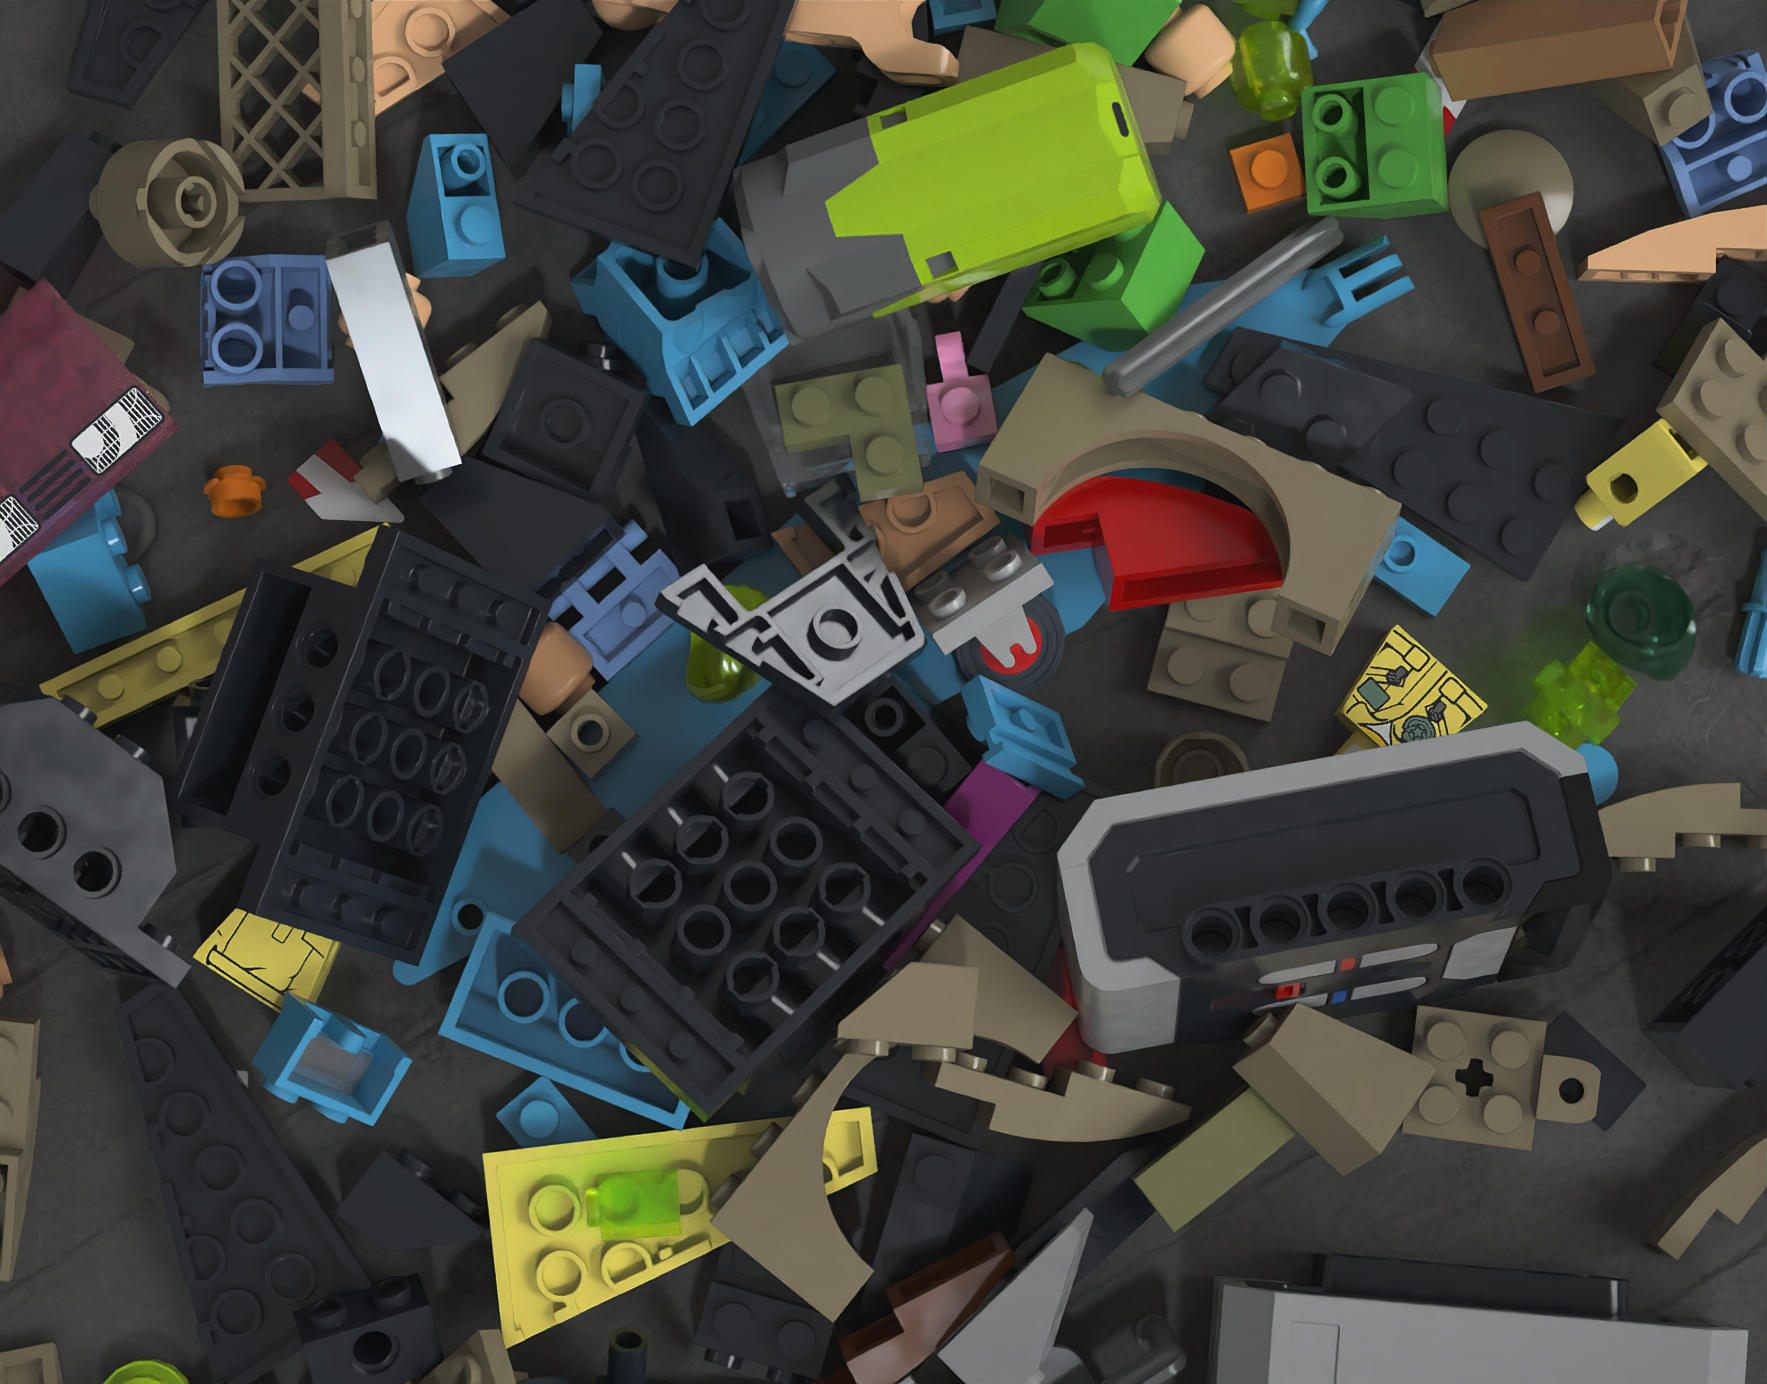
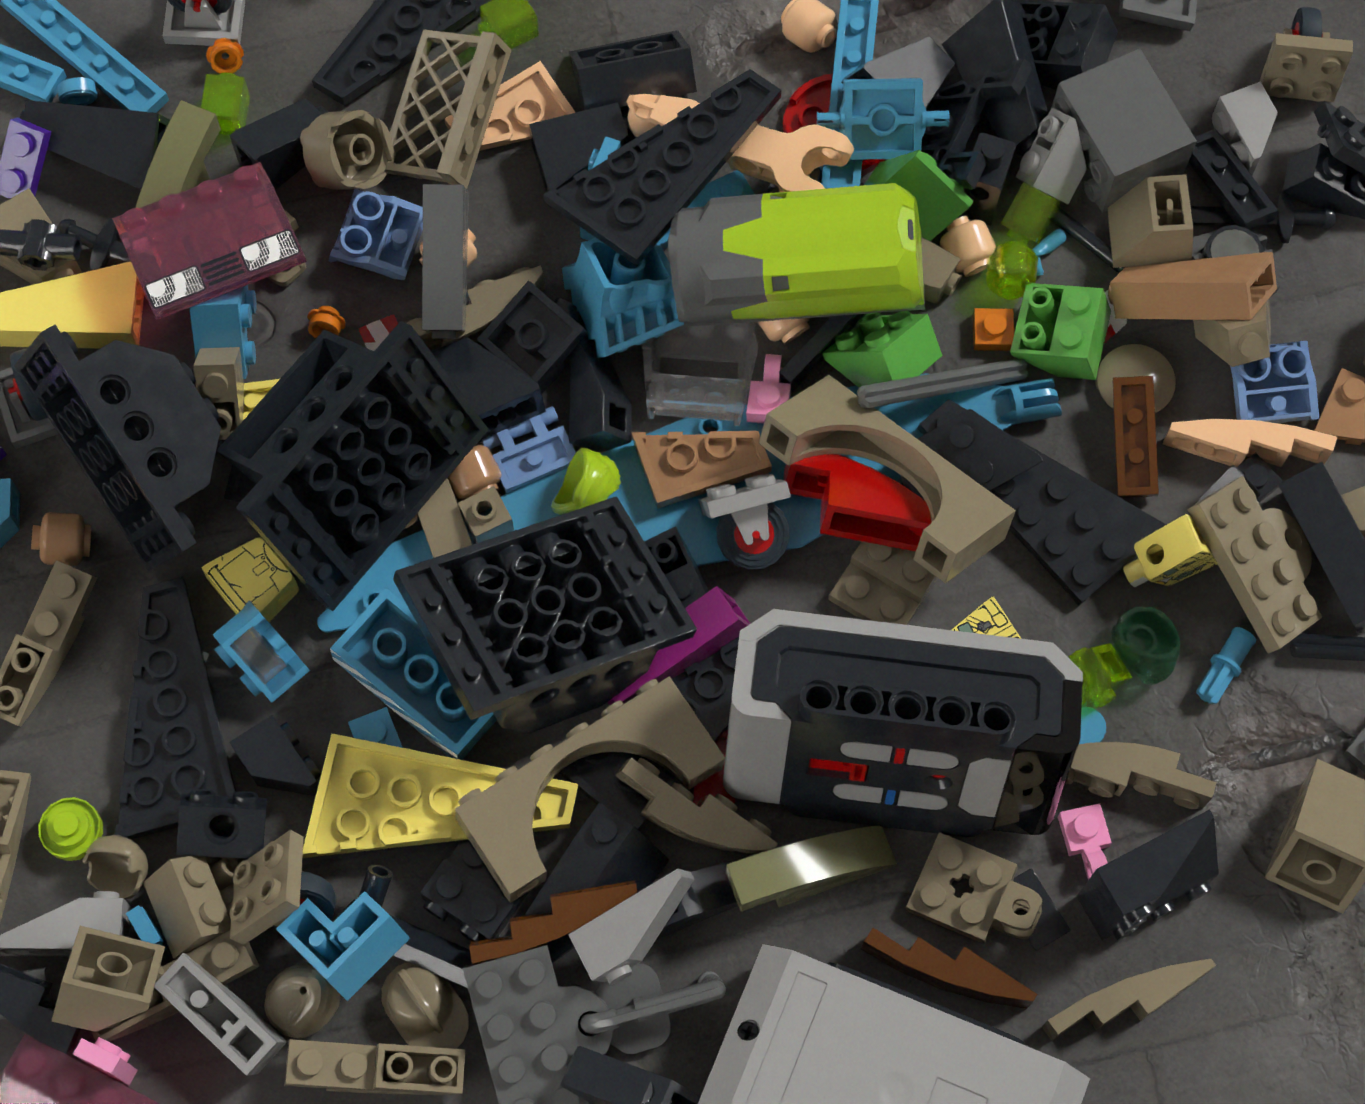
camera: 15 degrees right, 15 degrees down
(118, 668) = (221, 381): none -> dark tan slope
(454, 208) = (508, 204): dark azure slope -> none
(635, 1204) = (413, 788): clear neon green brick -> none
(826, 632) = (639, 483): wing -> none
(858, 409) = (707, 376): olive plate -> none
(918, 1008) = (621, 712): dark tan slope -> none
(1021, 737) = (740, 584): dark azure plate -> none
(1332, 1082) = (869, 848): dark tan slope -> none
(1420, 569) = (1013, 572): dark azure plate -> none
(1511, 1209) = (965, 976): none -> reddish brown slope
(1630, 936) = (1086, 834): none -> bright pink plate

